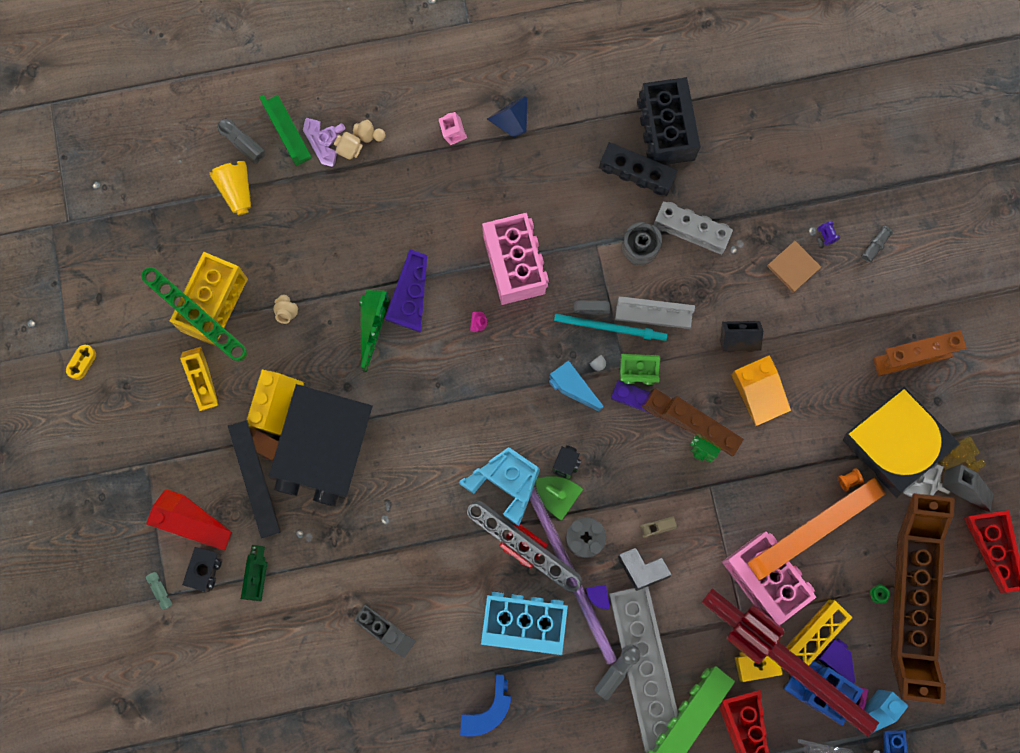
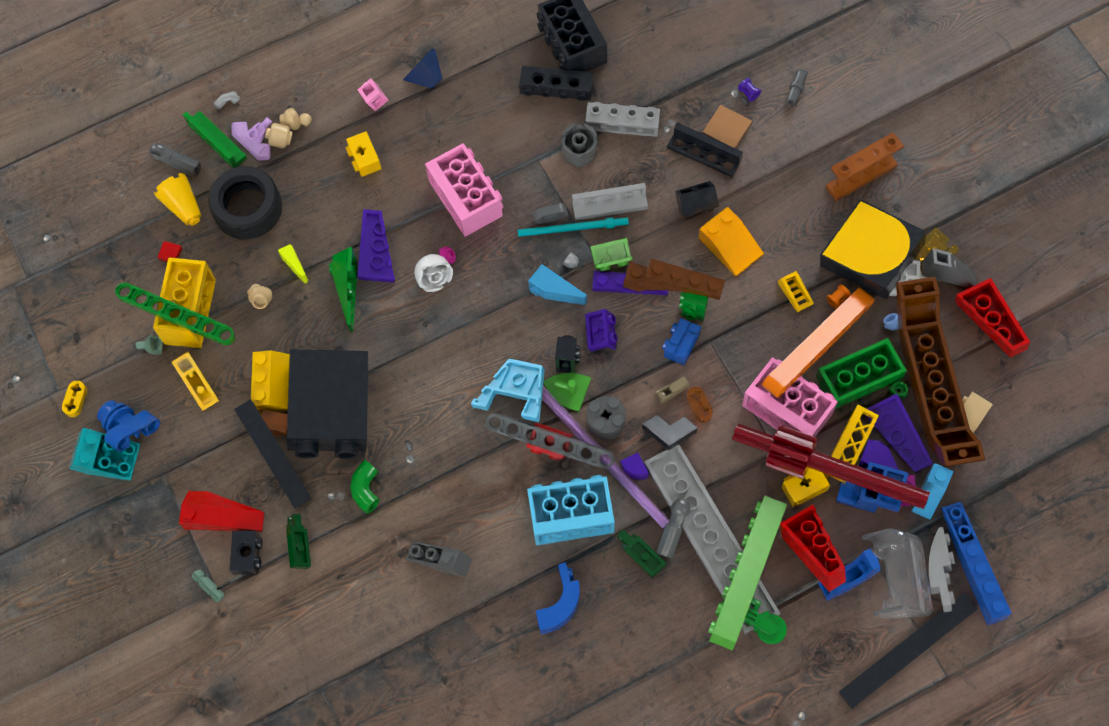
camera: 10 degrees left, 10 degrees down
(94, 430) = (98, 458): none -> teal slope
(119, 407) = (122, 422): none -> blue beam
(167, 329) = (152, 345): none -> sand green piece
(210, 236) = (169, 250): none -> red tile
(284, 185) = (238, 180): none -> black tyre
(307, 88) = (224, 98): none -> light grey arm
(326, 280) = (290, 258): none -> neon yellow slope
(329, 537) = (361, 487): none -> green cylinder
(425, 179) = (365, 163): none -> yellow brick
(459, 335) = (433, 272): none -> white cylinder
(580, 685) = (641, 553): none -> dark green hinge
(606, 444) = (601, 330): none -> dark purple bracket
(676, 551) = (703, 402): none -> clear orange beam
(683, 480) = (682, 341): none -> blue brick
(769, 279) = (707, 144): none -> black fence
(803, 461) = (790, 295): none -> yellow slope
(849, 568) = (861, 373): none -> green brick
(868, 639) = (900, 432): none -> dark purple wing
(894, 521) = (891, 322): none -> light blue plate
(950, 640) = (975, 409): none -> tan slope

